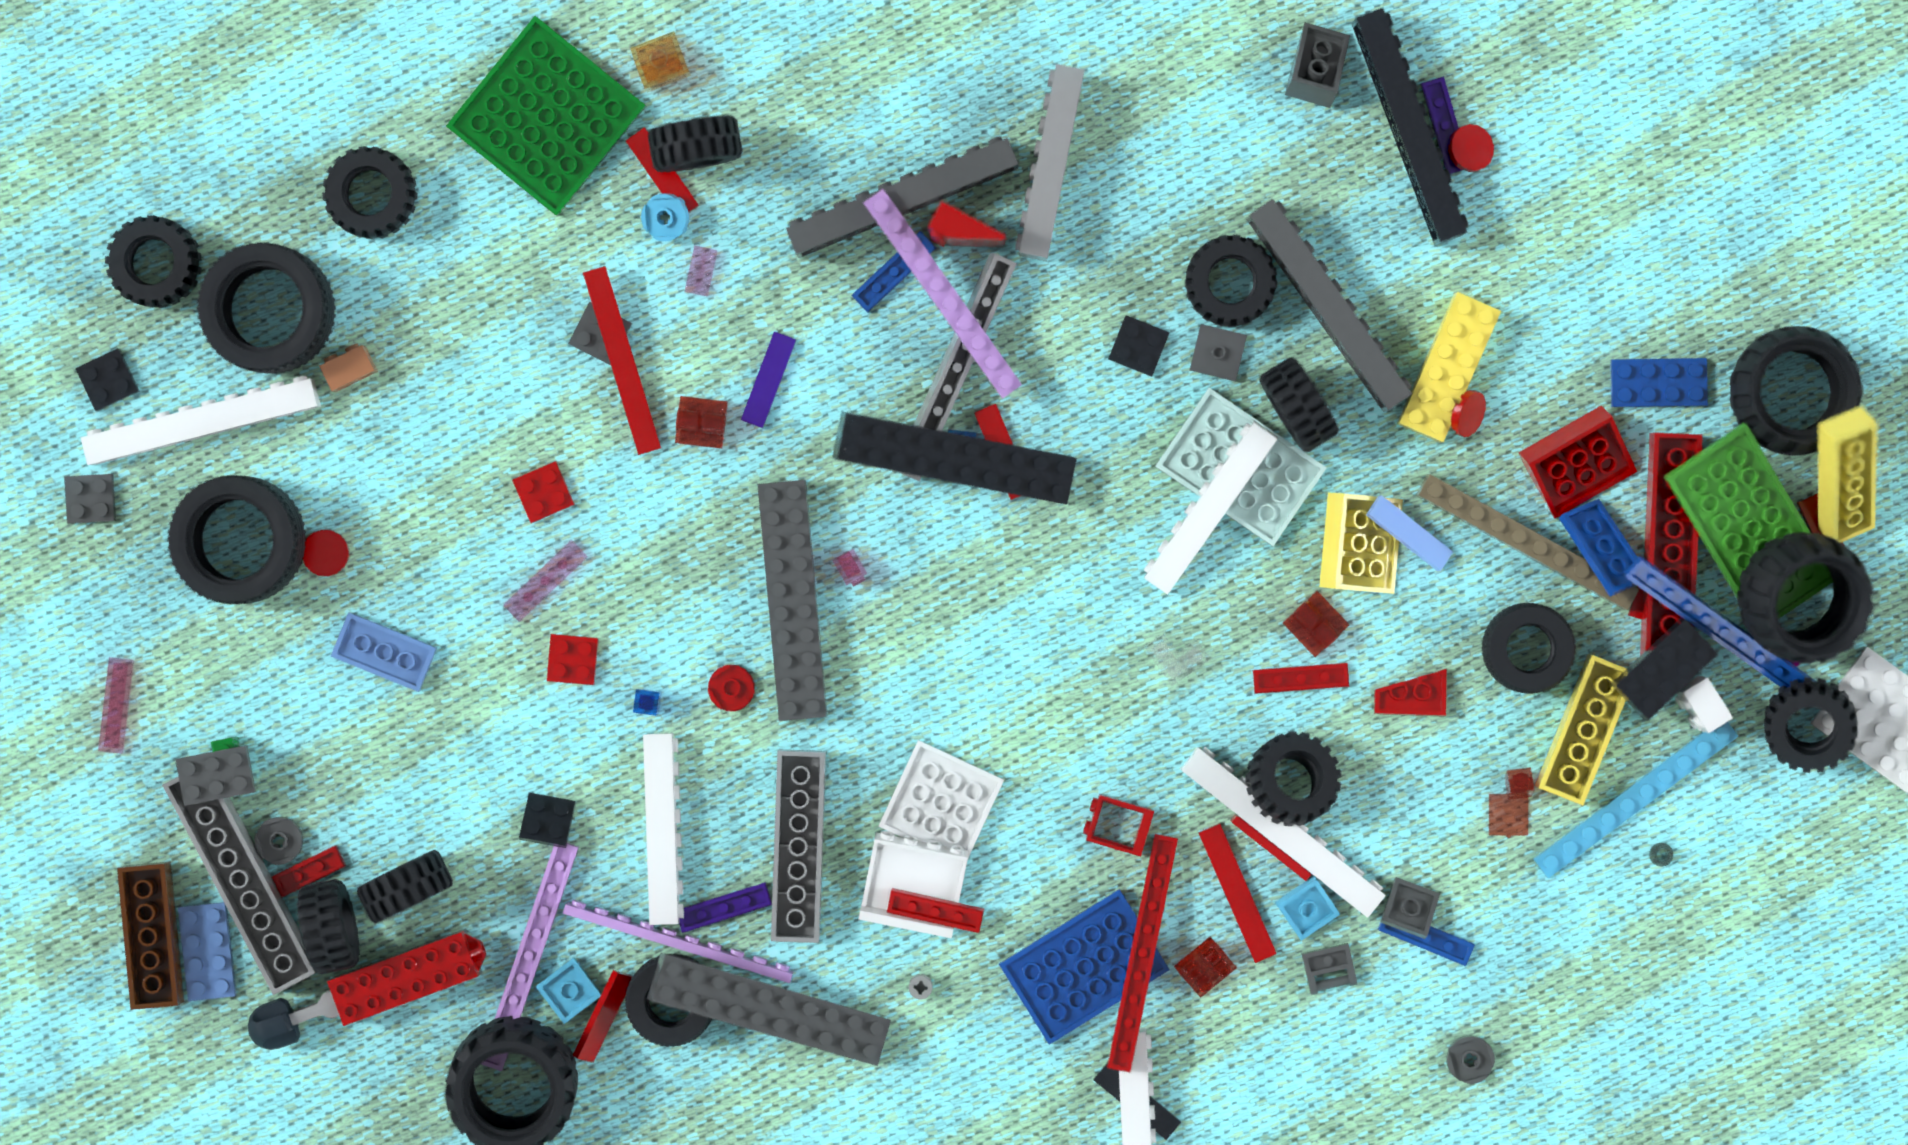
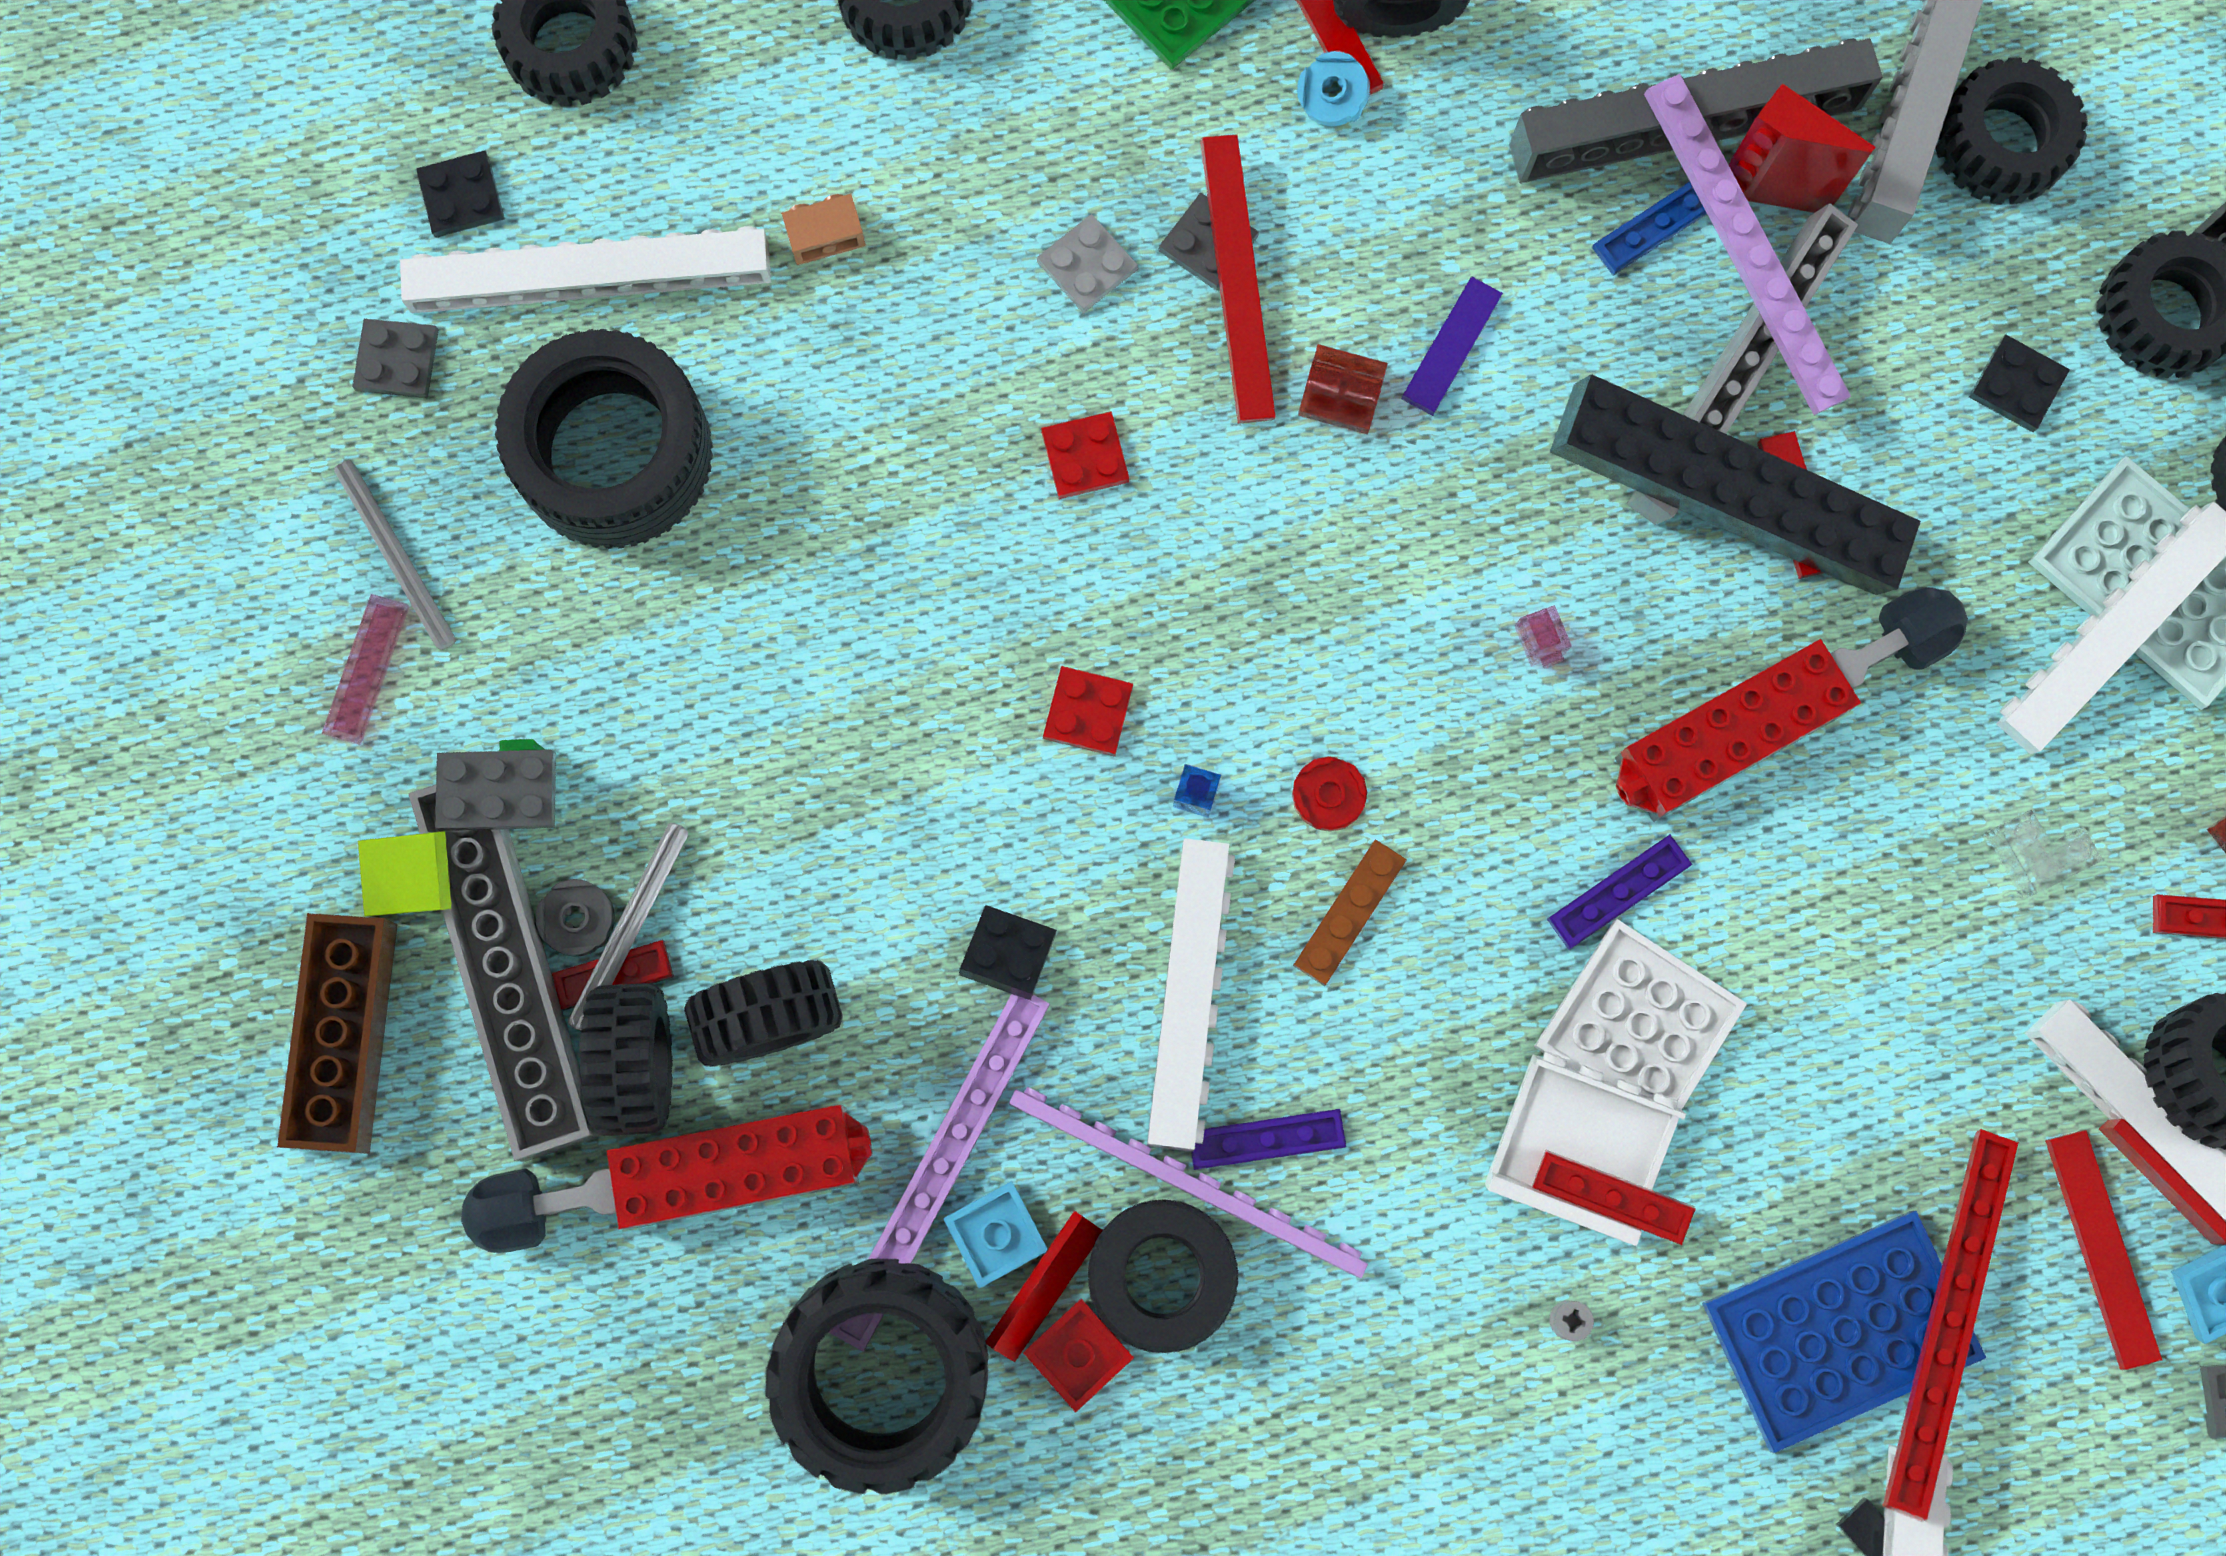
camera: 10 degrees right, 10 degrees down
(118, 628) = (395, 555): none -> light grey axle
(170, 834) = (404, 874): none -> lime tile
(207, 951) = (423, 1078): medium blue plate -> none
(217, 298) = (704, 46): black tyre -> none
(313, 837) = (633, 915): none -> light grey axle
(325, 553) = (736, 493): red tile -> none
(383, 652) = (797, 652): medium blue plate -> none
(523, 361) = (1087, 263): none -> light grey plate
(545, 580) = (1066, 586): tile -> none
(629, 1053) = (1078, 1355): none -> red plate
(701, 271) = (1372, 177): tile -> none
(754, 760) = (1349, 912): none -> dark orange plate
(768, 1009) = (1326, 1313): dark grey brick -> none
(792, 600) = (1447, 673): dark grey brick -> none
(798, 846) = (1405, 1056): light grey brick -> none
(919, 721) = (1619, 892): none -> dark purple tile
(1002, 591) = (1780, 706): none -> red piece
(1120, 144) = (2041, 101): none -> black tyre
(1142, 832) = (1962, 1117): red window -> none
(1205, 966) = (2045, 1362): clear red plate -> none
(1218, 352) = (2139, 411): dark grey plate -> none

